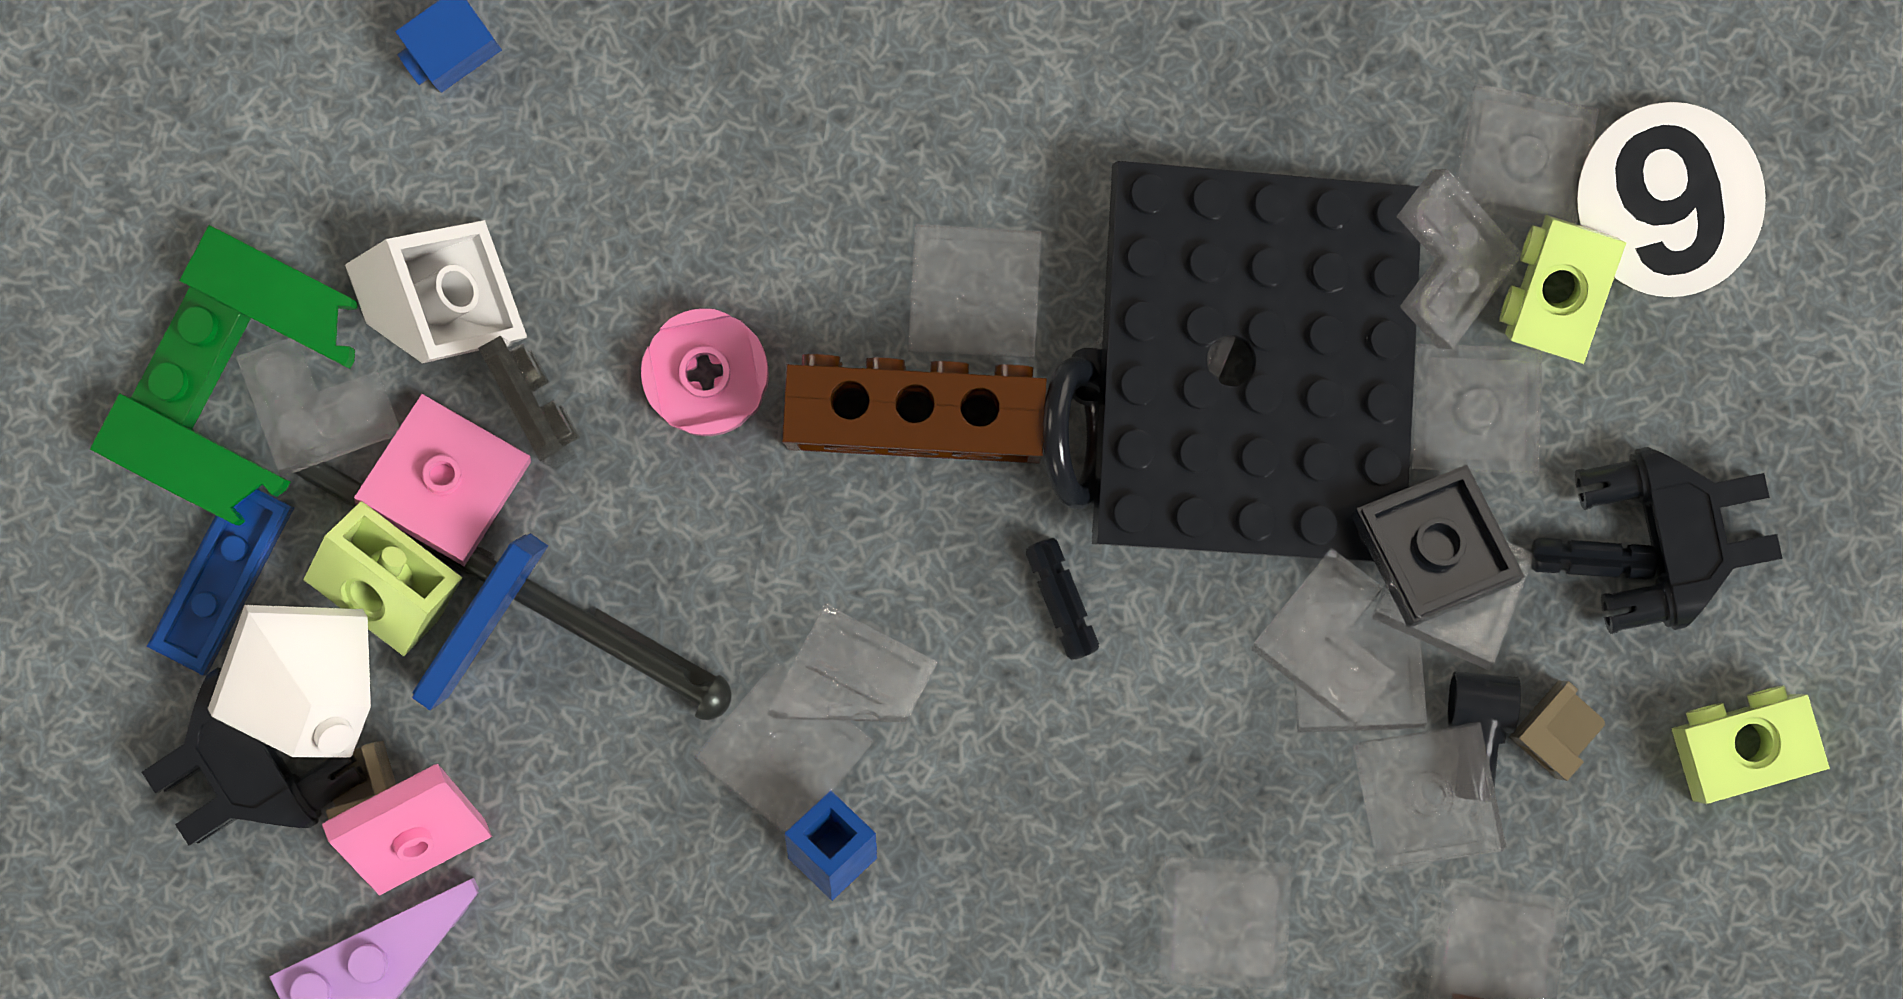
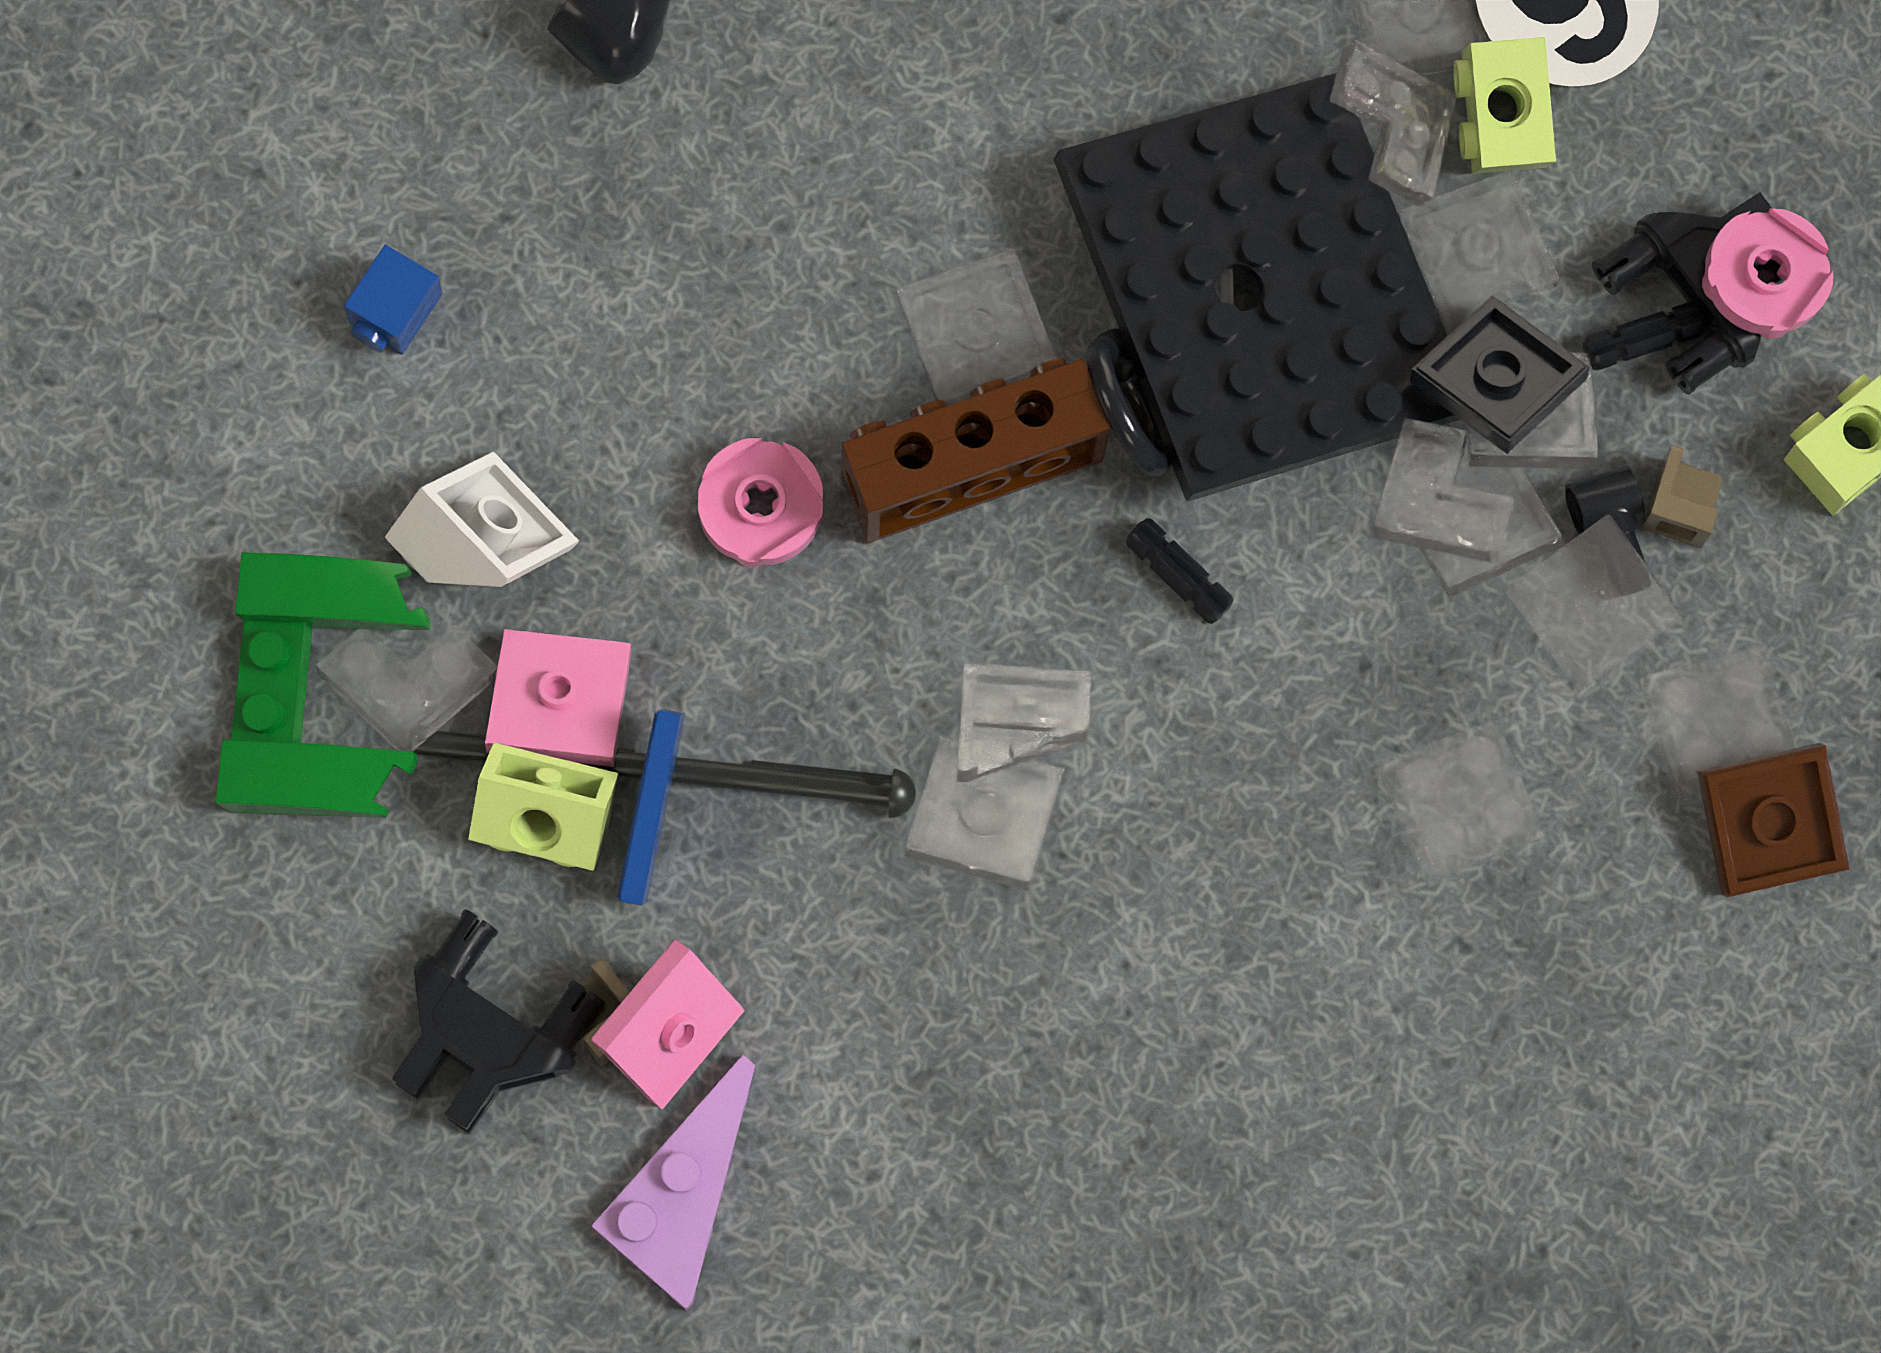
camera: 30 degrees left, 10 degrees down
(219, 582) = (385, 883): blue tile -> none
(297, 679) = (506, 923): white slope -> none
(520, 381) = (630, 598): clear smoke plate -> none
(831, 845) = (1069, 874): blue brick -> none
(1770, 568) = (1770, 307): none -> bright pink plate

